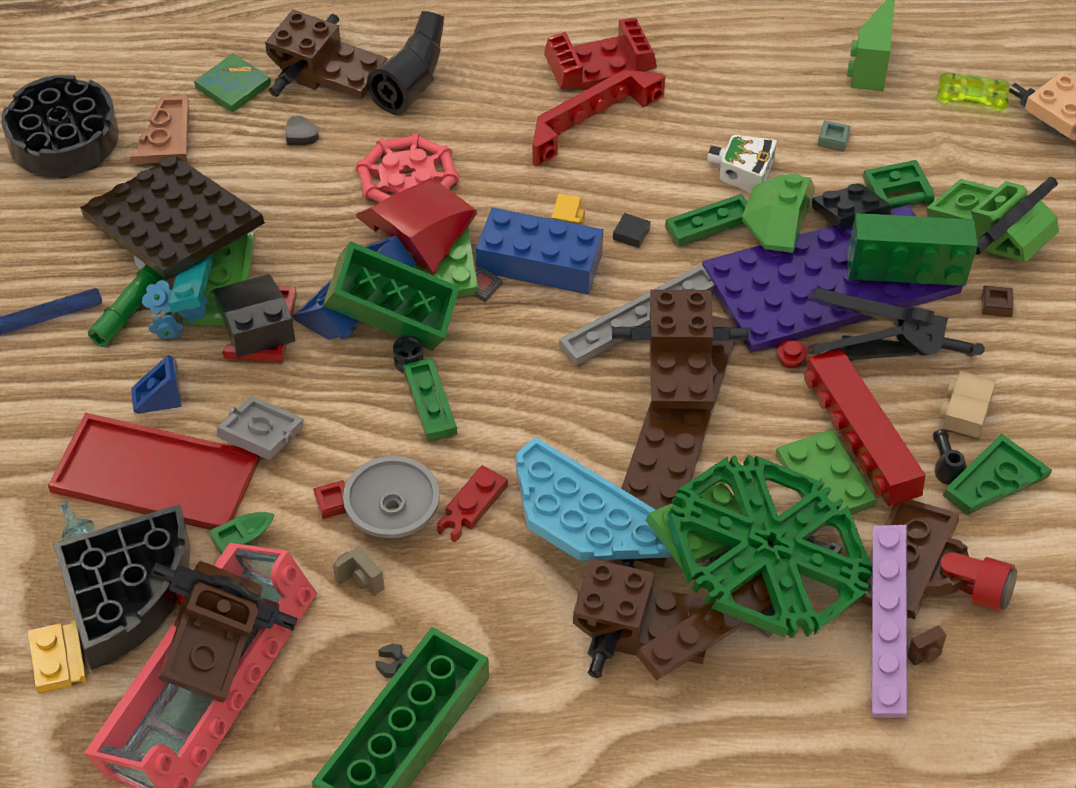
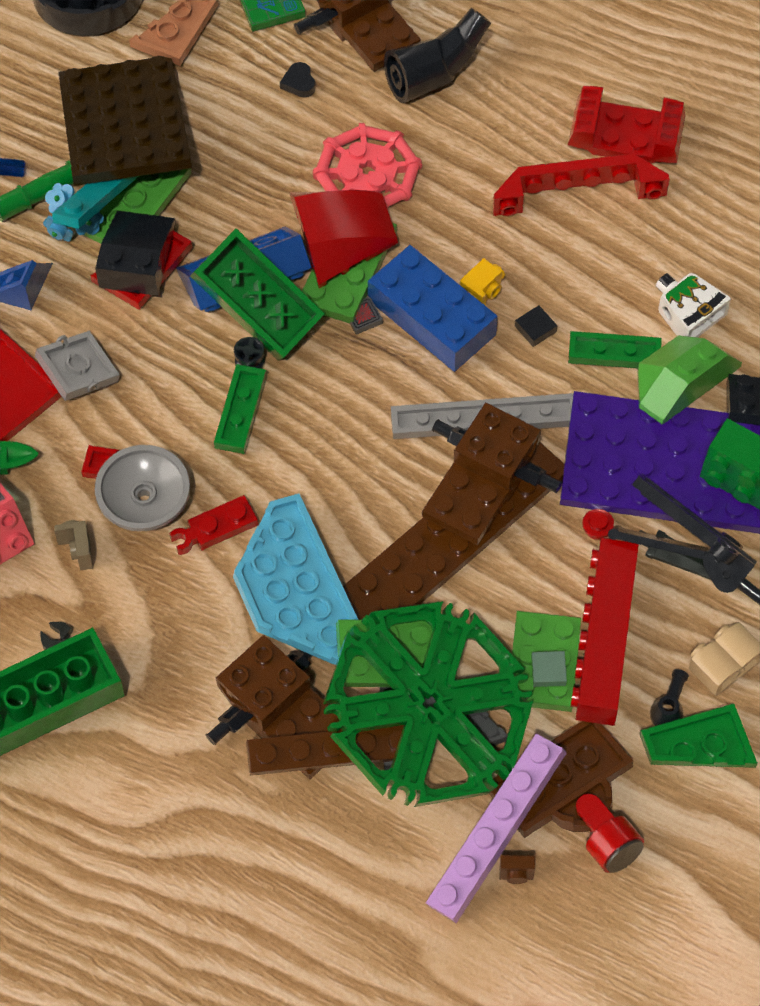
camera: 30 degrees right, 10 degrees up
(839, 476) = (548, 669): none -> sand green tile

